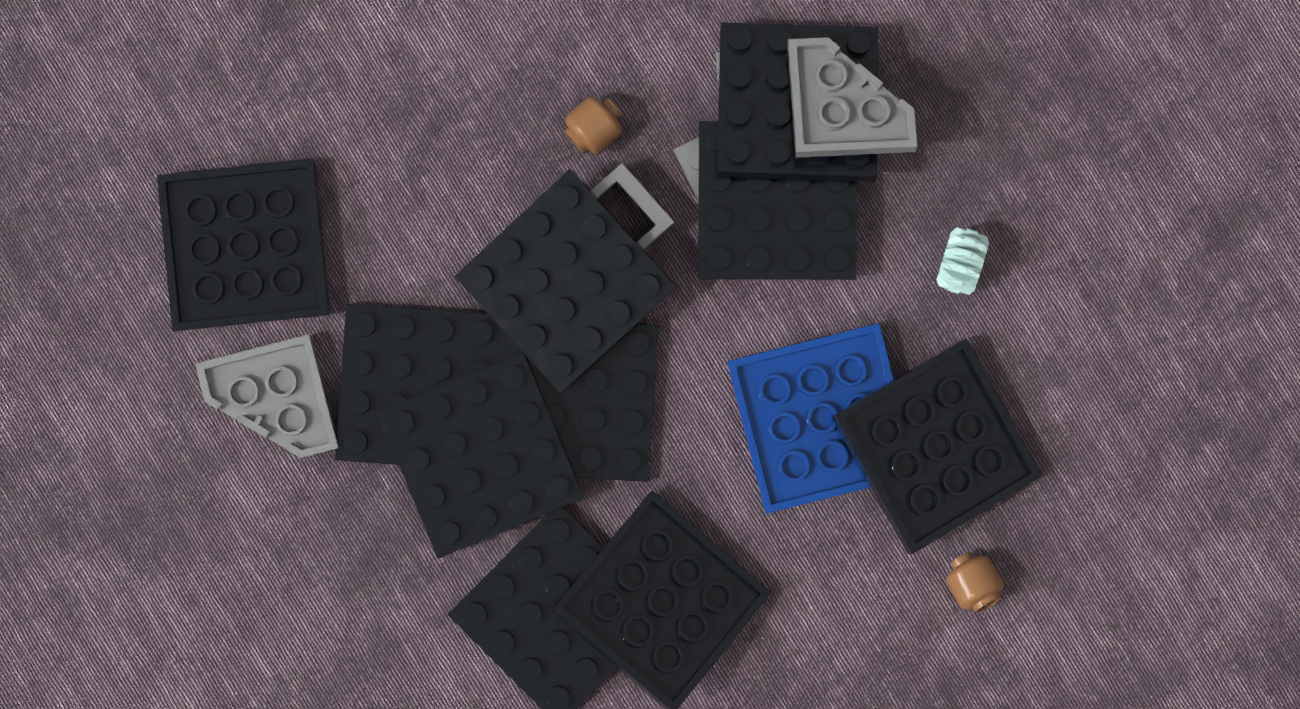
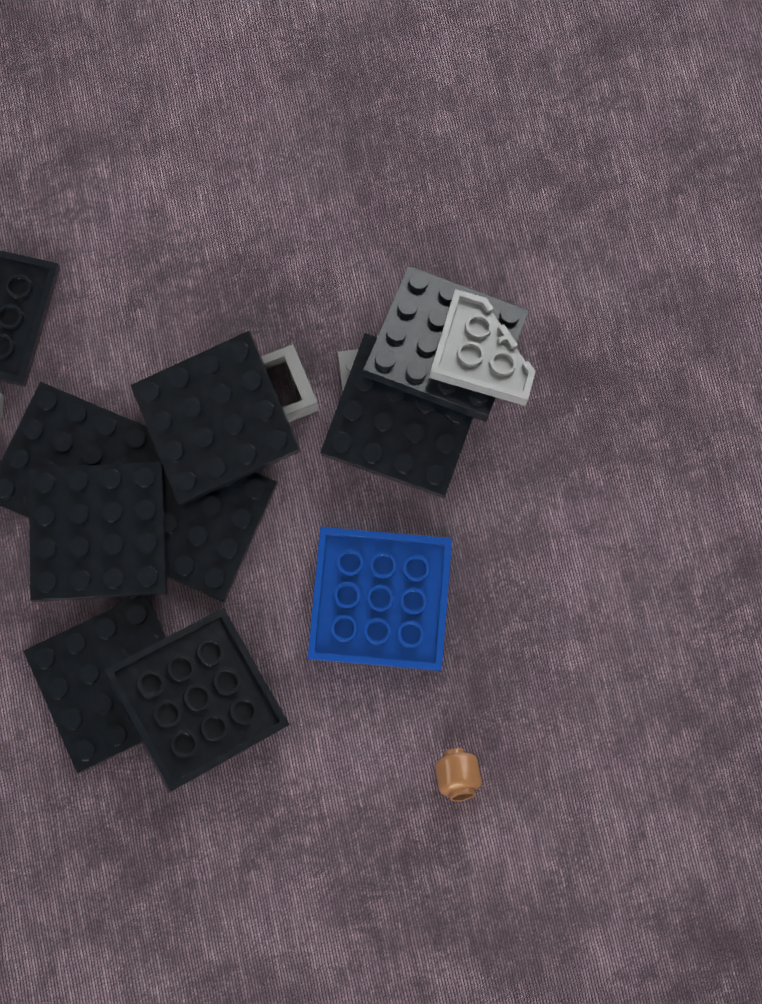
camera: 15 degrees right, 10 degrees down
(593, 125) = (282, 311): medium nougat head -> none
(936, 446) = (464, 651): black plate -> none
(962, 261) = (535, 511): light aqua gear -> none

